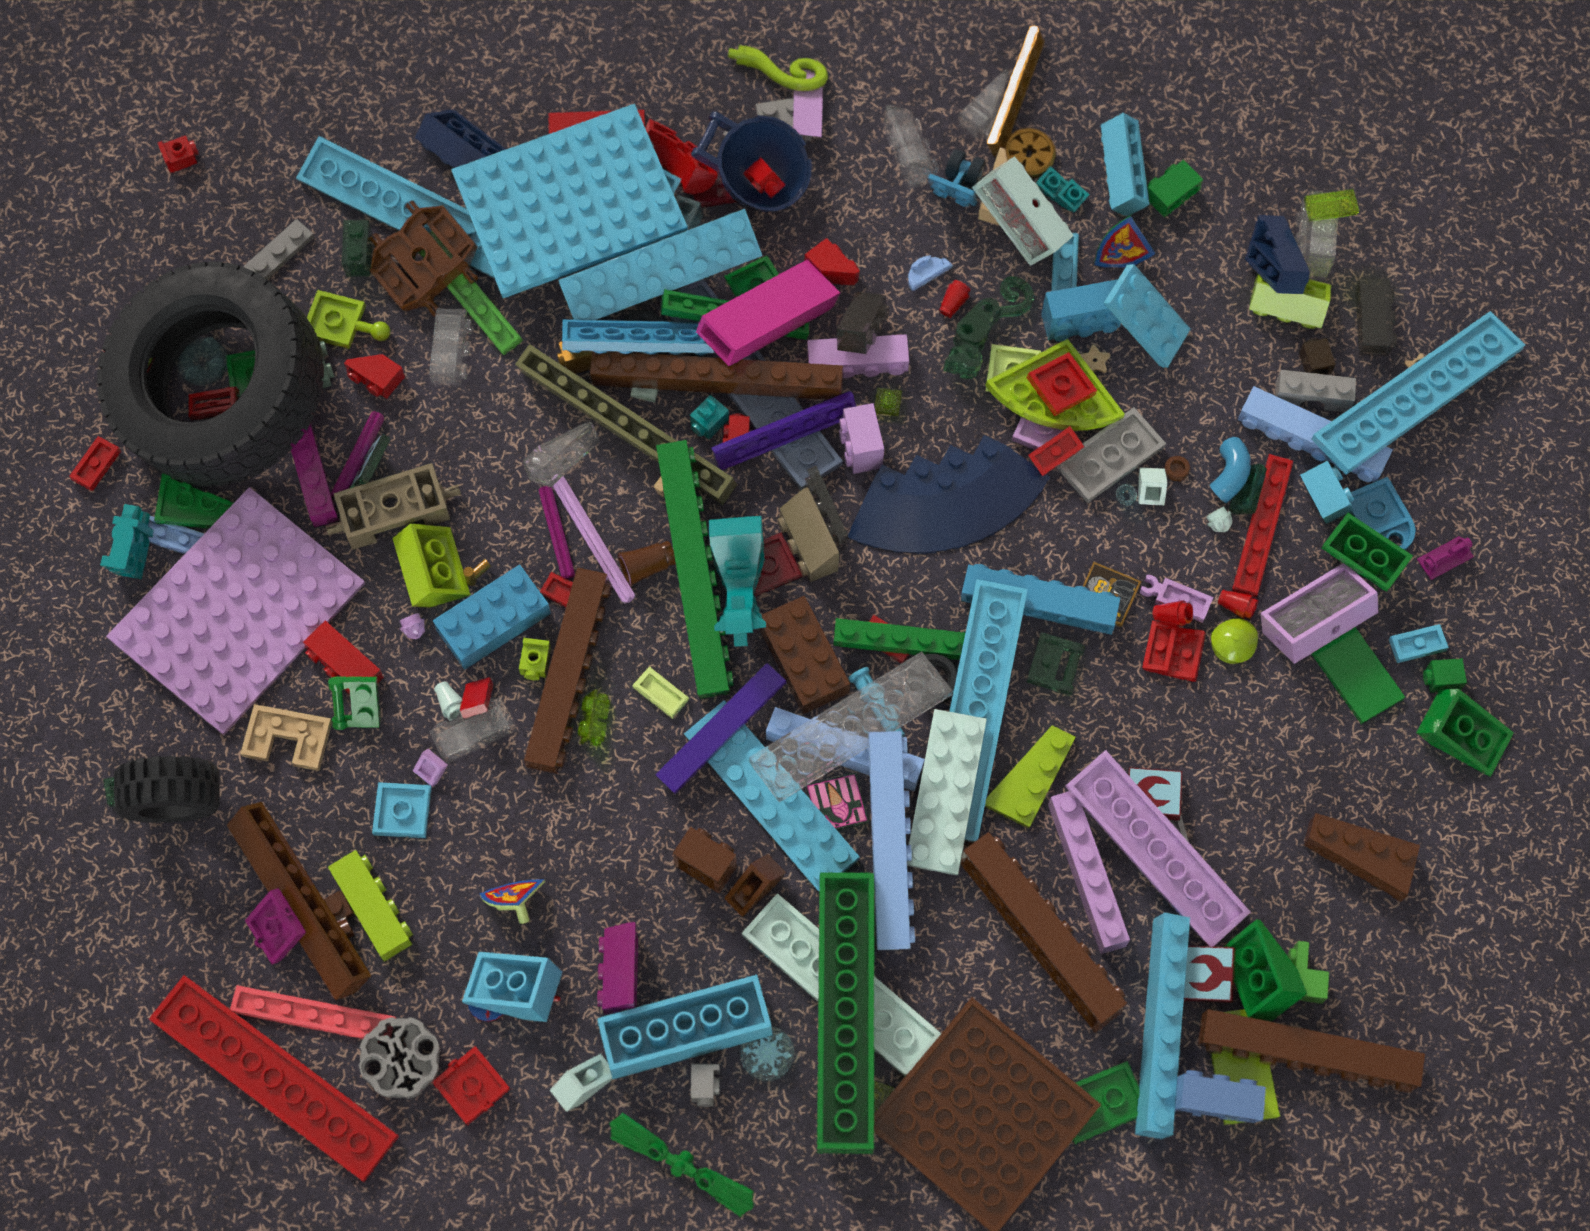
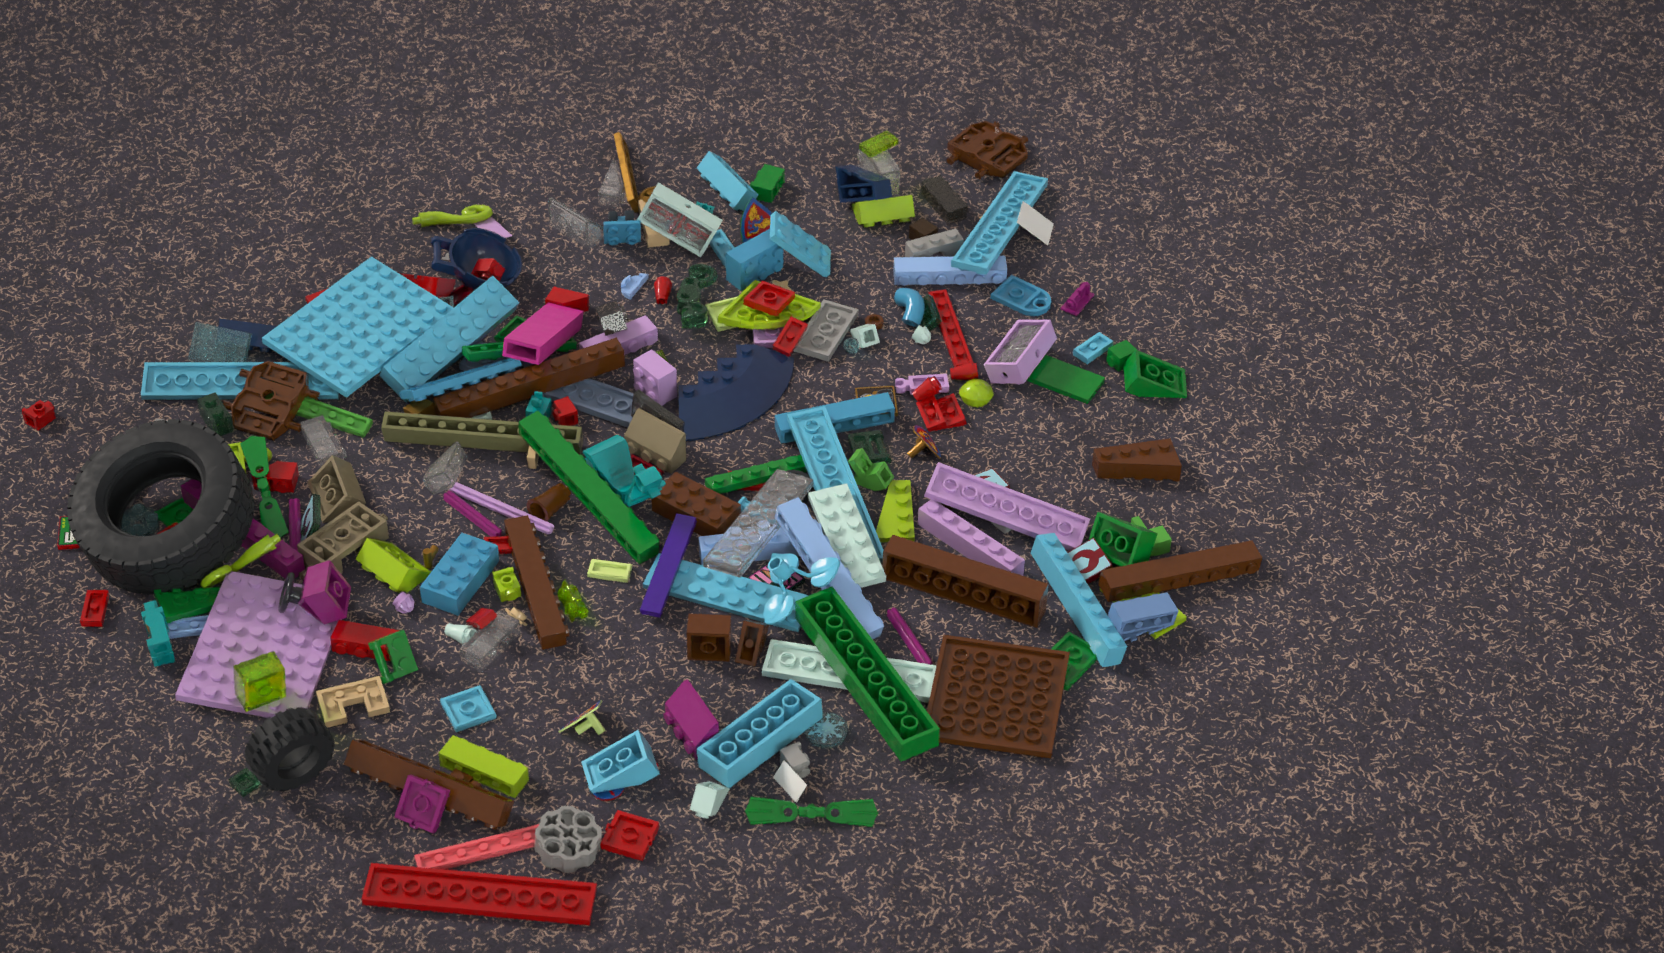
camera: 30 degrees left, 25 degrees down
(187, 674) = (259, 681): none -> clear neon green brick
(283, 482) = (253, 553): none -> lime plant
(318, 584) = (322, 595): none -> magenta piece
(339, 430) = (256, 457): none -> green piece
(412, 149) = (218, 344): none -> clear light blue plate
(428, 424) = (337, 488): none -> dark tan slope
(430, 767) = (473, 674): lavender tile -> none
(521, 709) = (516, 613): none -> tan plate
(682, 1108) = (790, 781): none -> white sticker
(782, 431) = (598, 393): dark purple tile -> none
(847, 800) = (781, 568): none -> medium azure plant
(937, 972) = (908, 636): none -> magenta axle
(1031, 706) = (870, 475): none -> bright green brick
(1125, 689) = (923, 441): none -> shield
(1327, 491) = (980, 293): medium azure brick -> none
(1367, 552) = (1026, 308): green slope -> none
(1455, 248) = (982, 143): none -> reddish brown piece
(1464, 411) = (1035, 223): none -> white sticker

